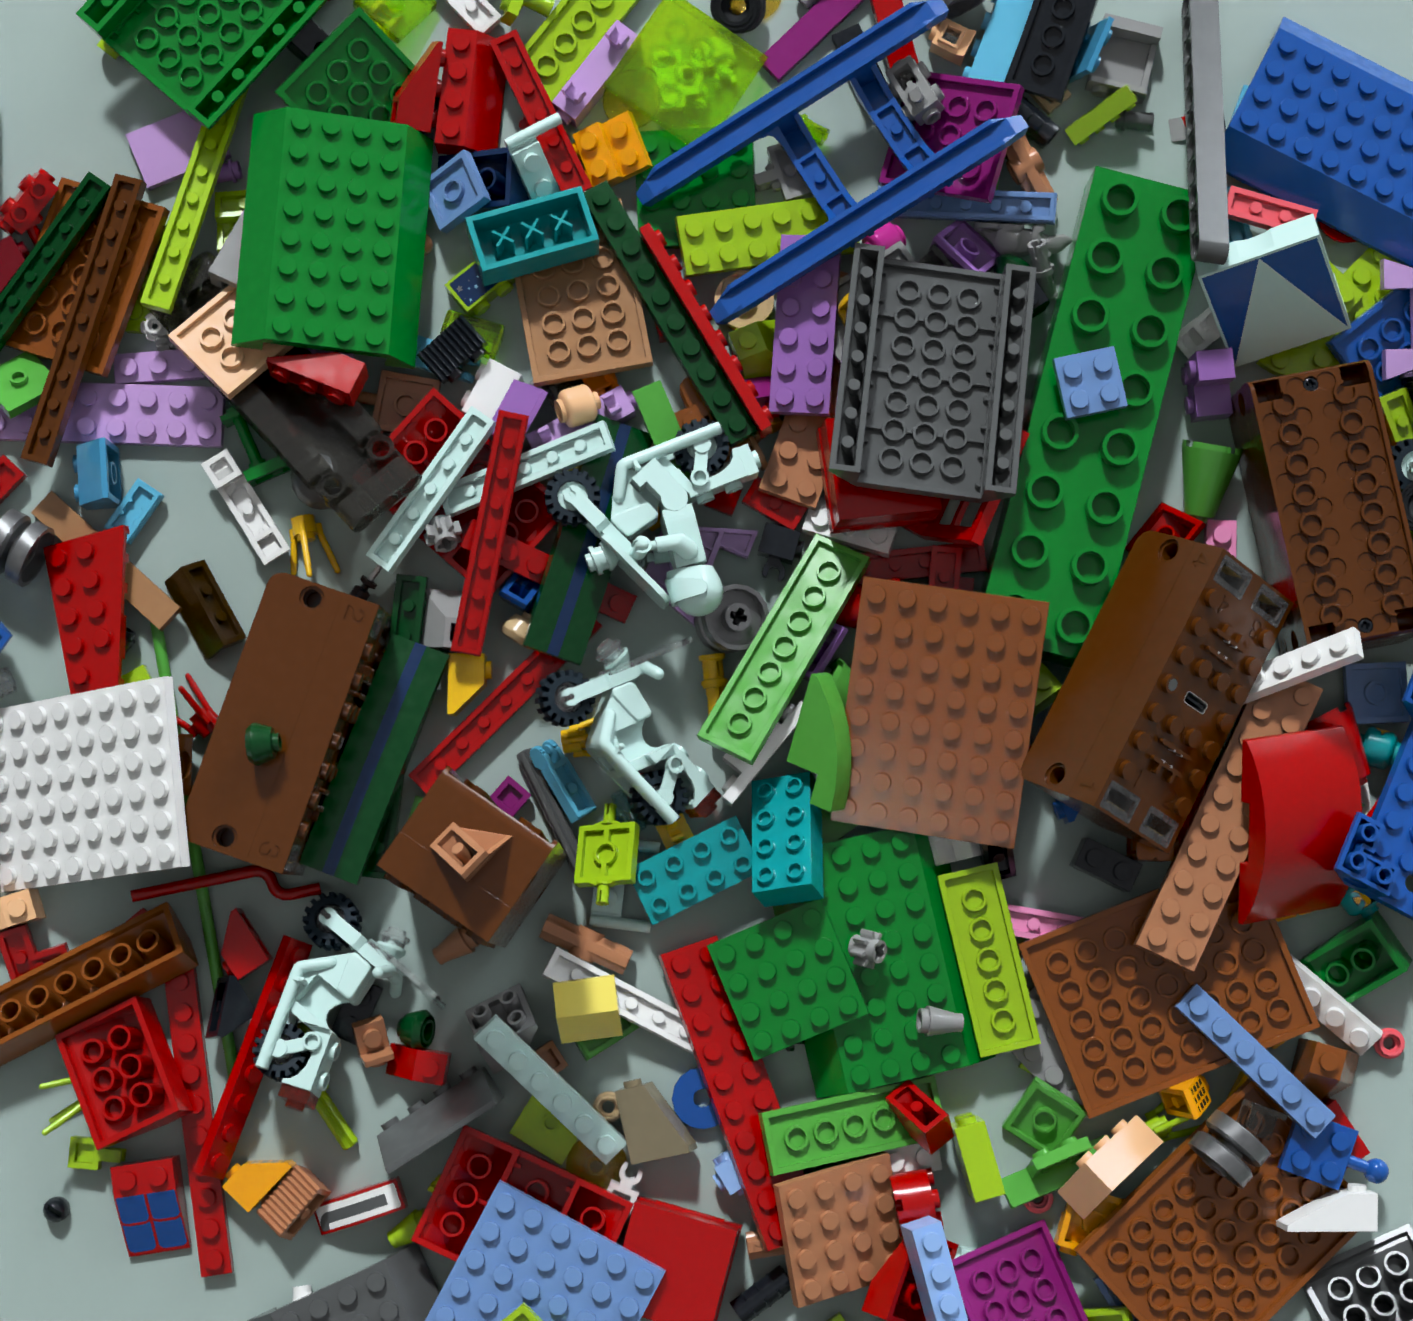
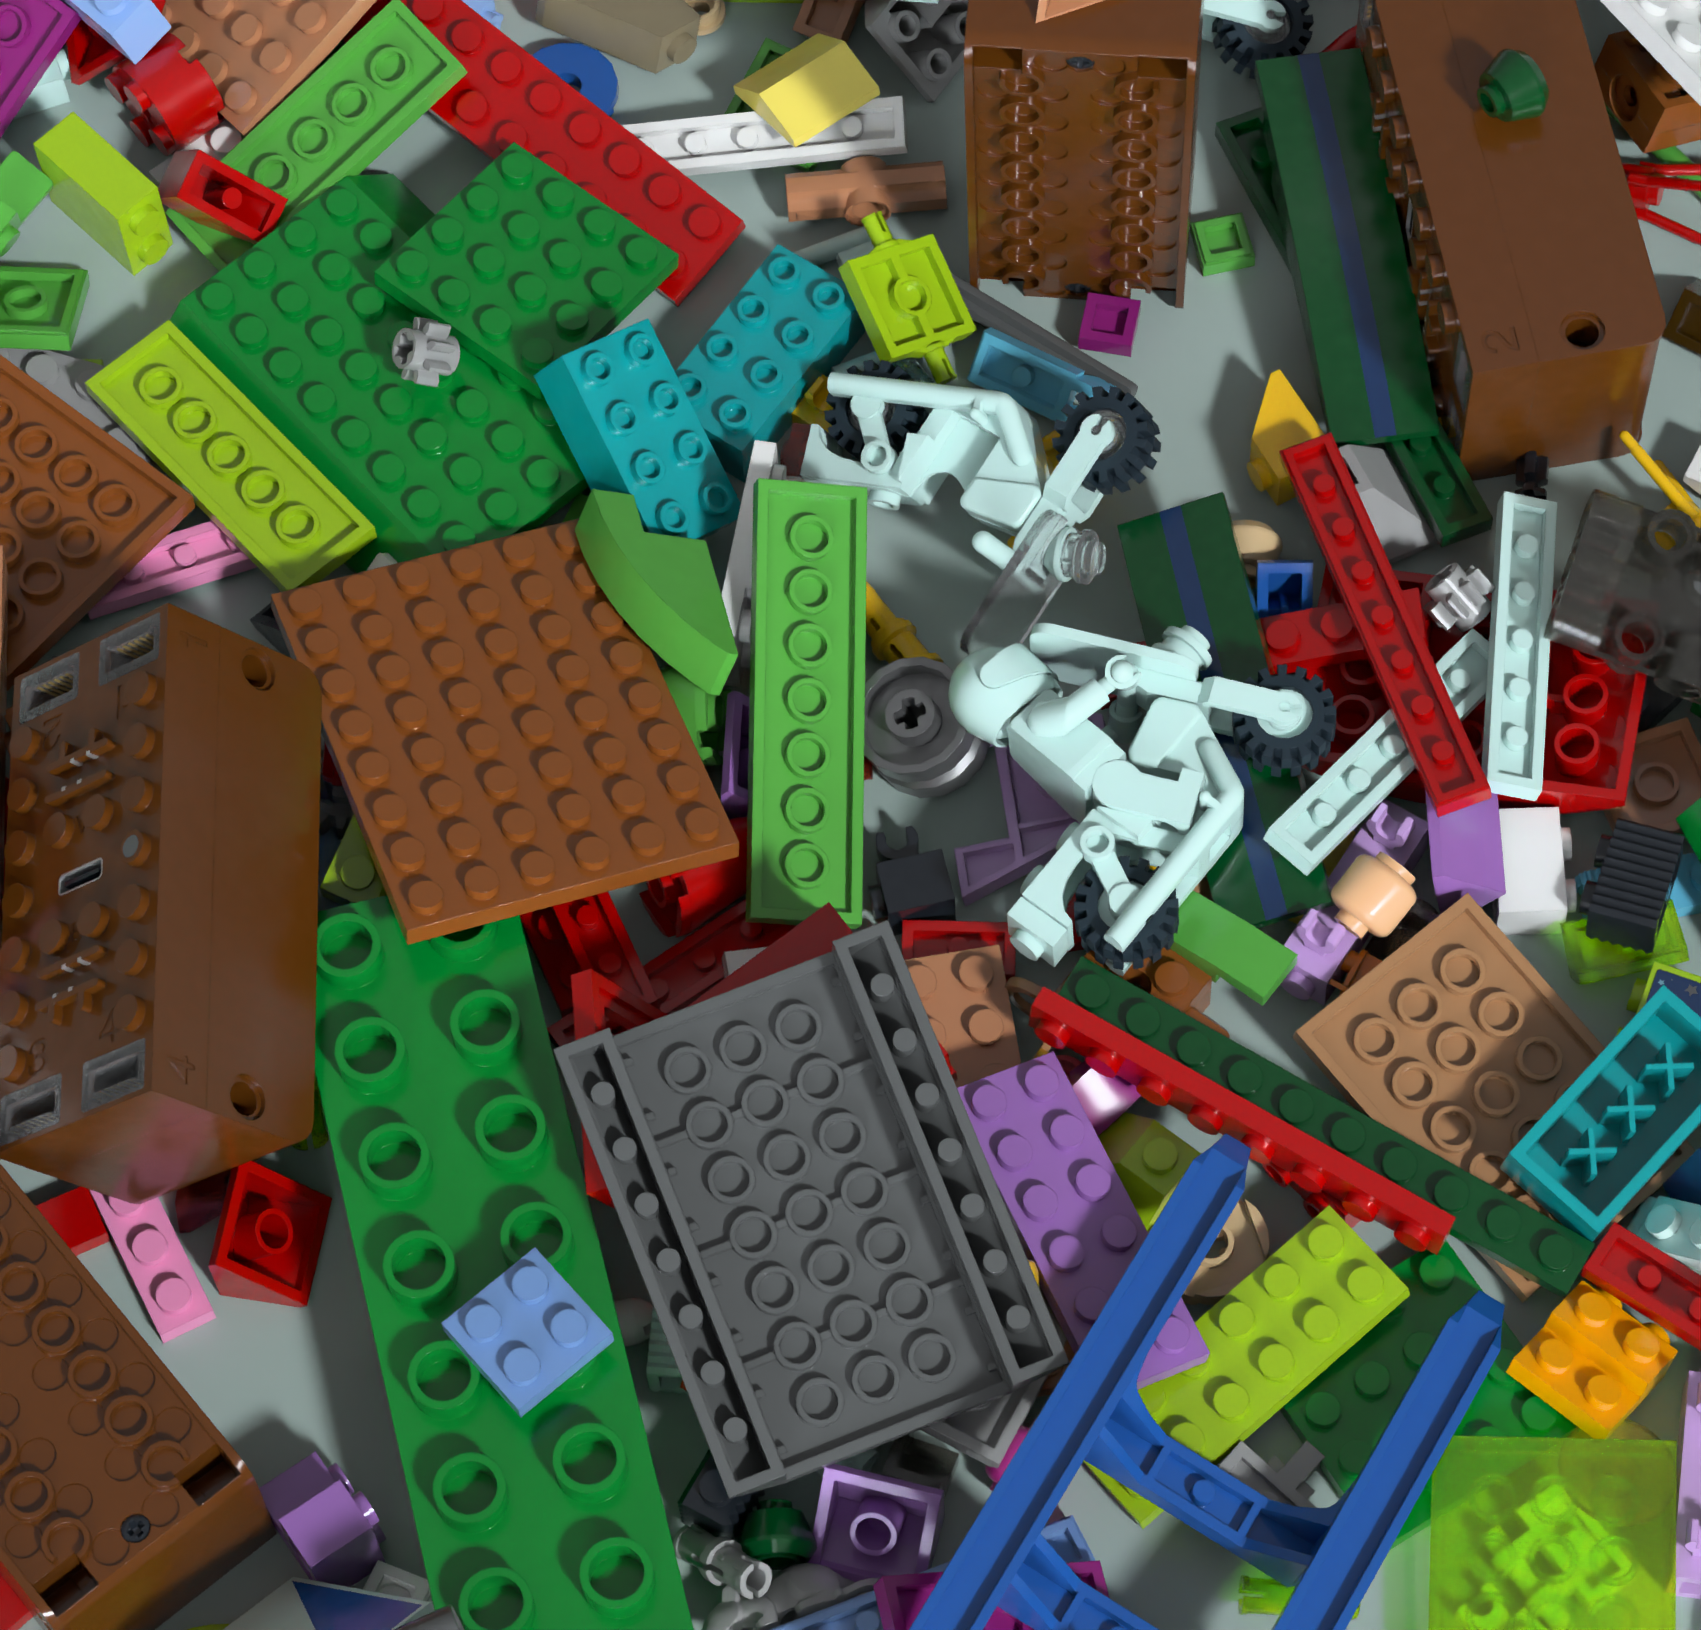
camera: 155 degrees right, 20 degrees down
(488, 717) = (1219, 392): red plate -> none
(938, 1021) = (259, 317): light grey cone -> none
(1206, 477) = (251, 1375): bright green cone -> none

